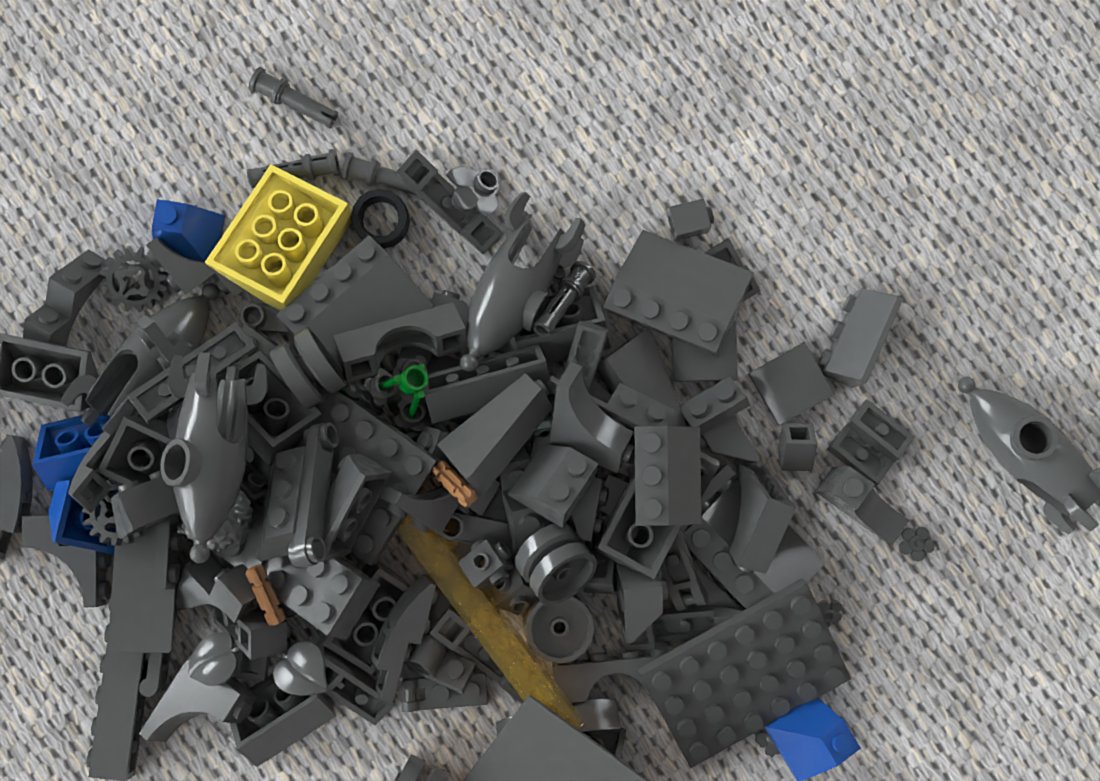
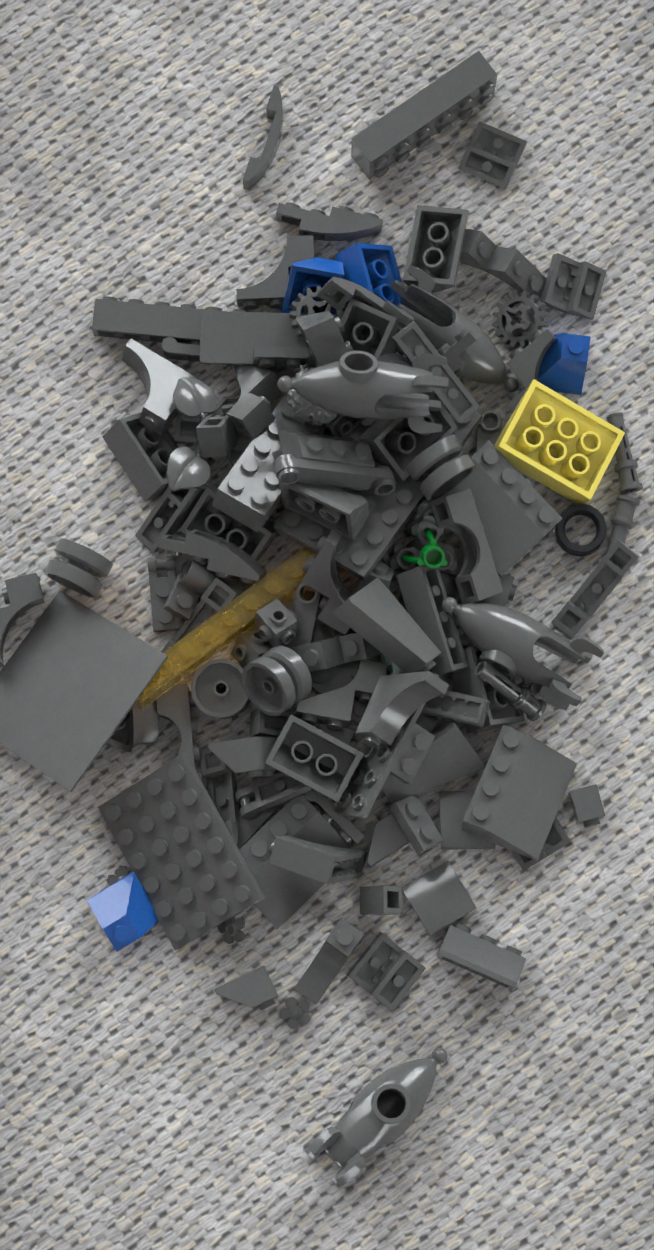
camera: 90 degrees right, 5 degrees down
(98, 220) = (573, 286): none -> dark grey slope
(265, 594) = (249, 438): medium nougat axle -> none
(454, 484) = (344, 591): medium nougat axle -> none
(471, 190) = (605, 609): dark grey plate -> none
(555, 482) = (345, 678): dark grey slope -> none
(667, 475) = (353, 770): dark grey slope -> none
(895, 594) = (250, 989): none -> dark grey slope

